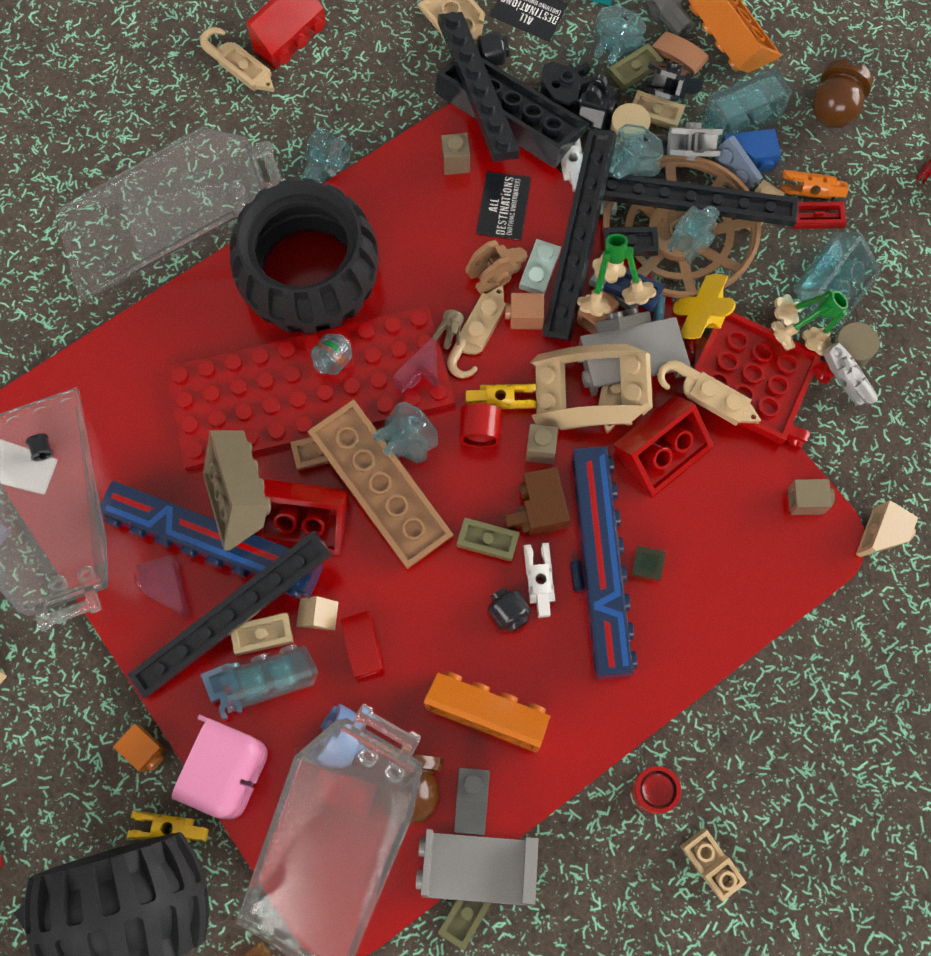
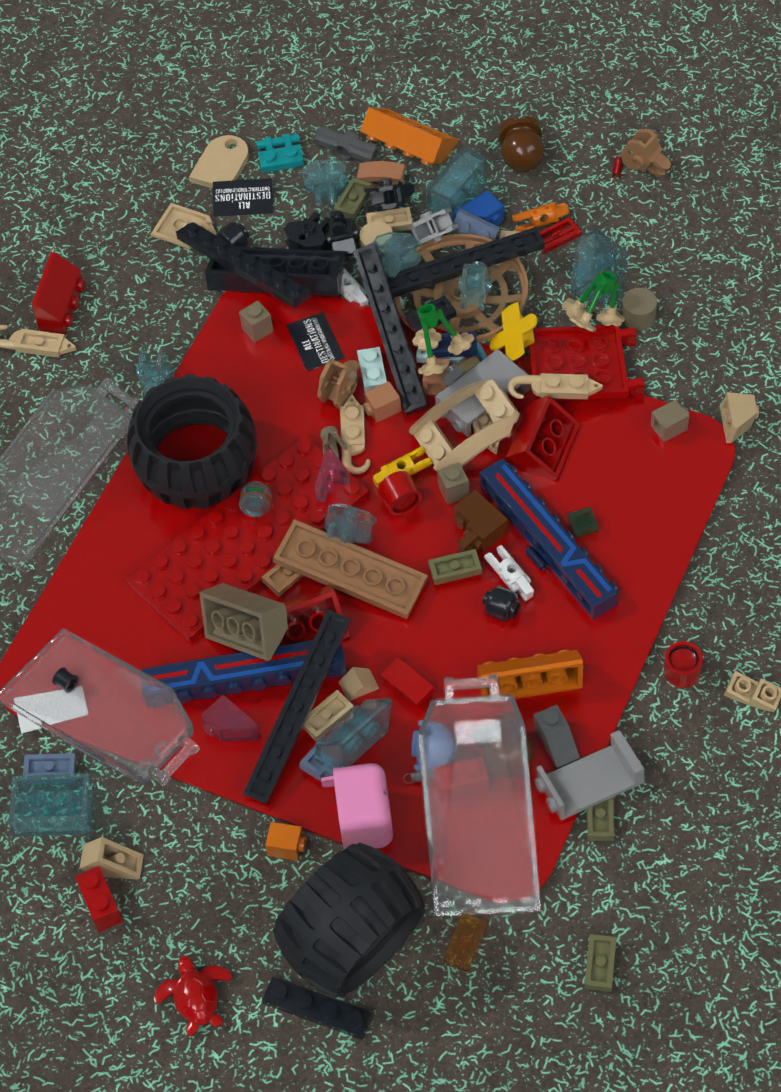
camera: 25 degrees left, 15 degrees down
(849, 375) = (648, 327): light grey hinge -> none

